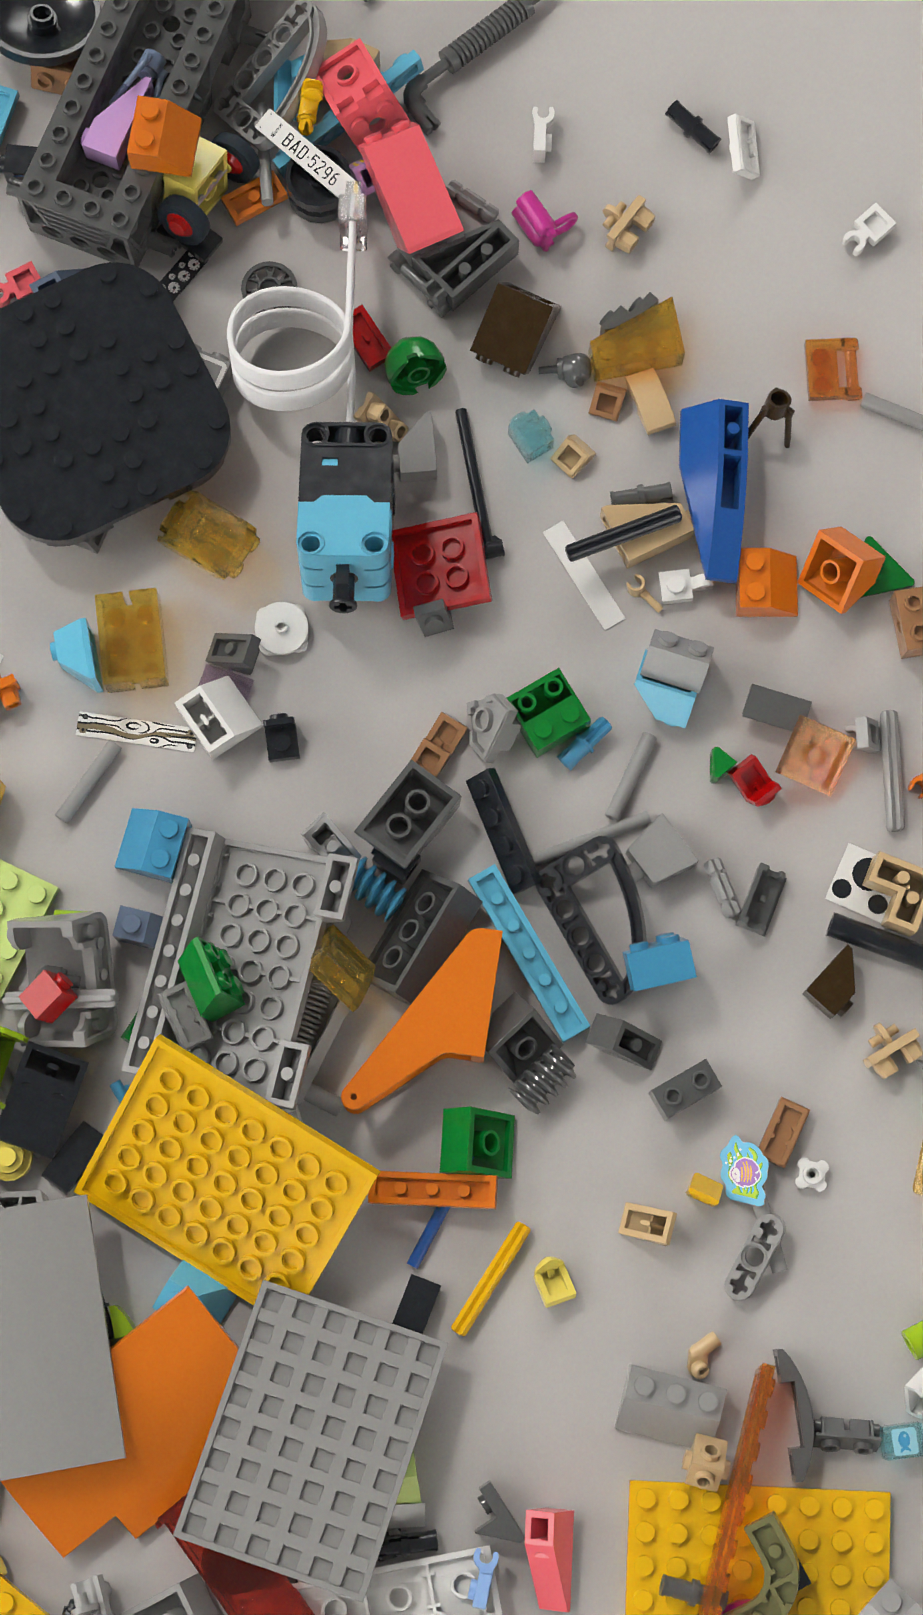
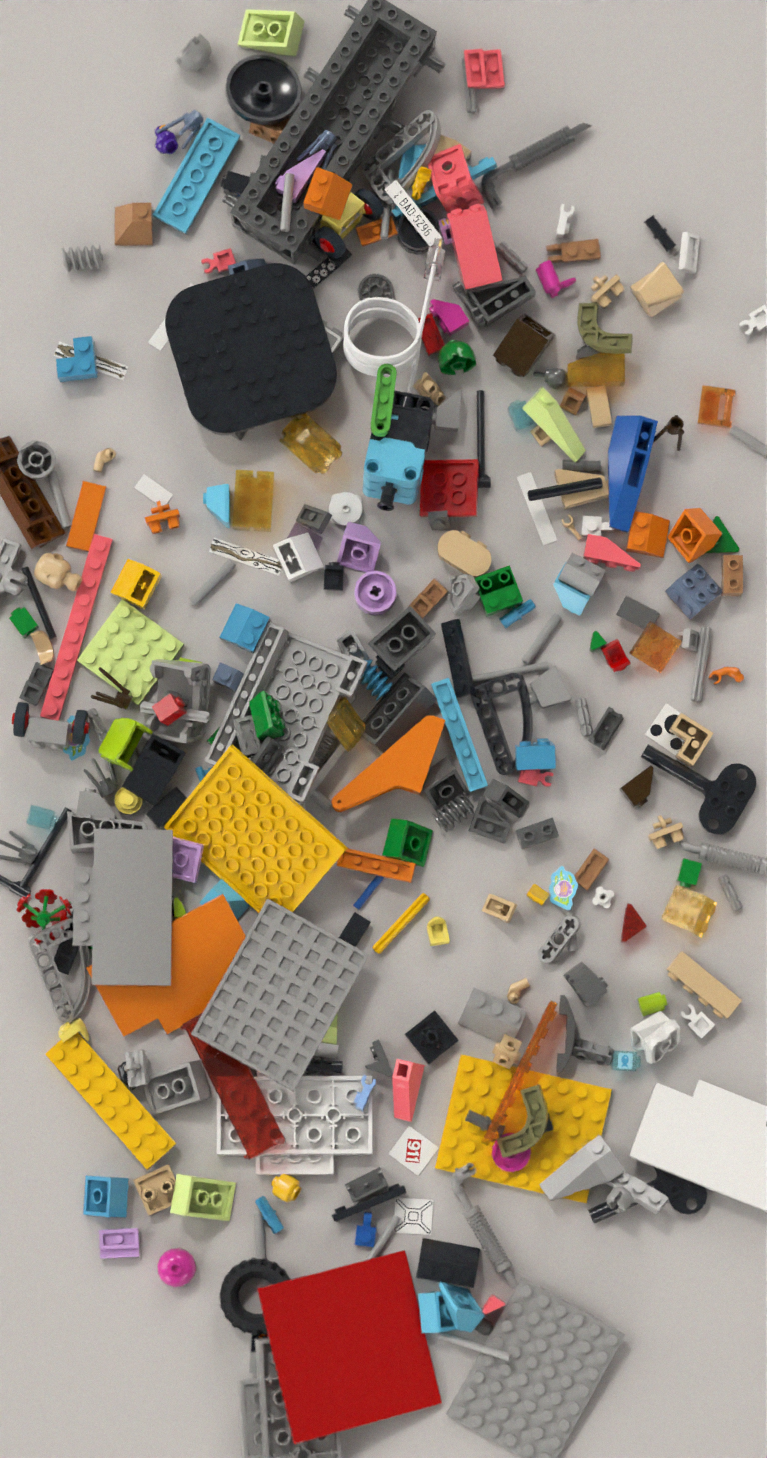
camera: 10 degrees right, 5 degrees up
(103, 163) = (287, 202): none -> light grey piece
(118, 1238) = (186, 859): none -> lavender plate
(221, 1041) = (267, 754): none -> dark grey hinge
(309, 437) = (383, 400): none -> bright green plate
(314, 686) = (359, 548): none -> lavender slope
(346, 733) = (372, 582): none -> lavender wheel
(392, 304) = (450, 316): none -> dark pink slope
(482, 663) = (463, 553): none -> tan brick
(568, 175) = (575, 251): none -> medium nougat hinge
(578, 1485) = (431, 1037): none -> black plate
(579, 428) = (552, 420): none -> yellowish green wedge
(603, 1086) = (489, 822): none -> dark grey wing
(630, 294) = (597, 338): none -> olive plate
(660, 998) = (532, 777): none -> coral plate
(706, 621) = (605, 551): none -> coral slope
(707, 208) = (657, 290): none -> tan piece
(816, 1324) = (586, 983): none -> dark grey wedge
(856, 658) = (693, 591): none -> sand blue bracket
(868, 1209) = (631, 924): none -> clear red slope

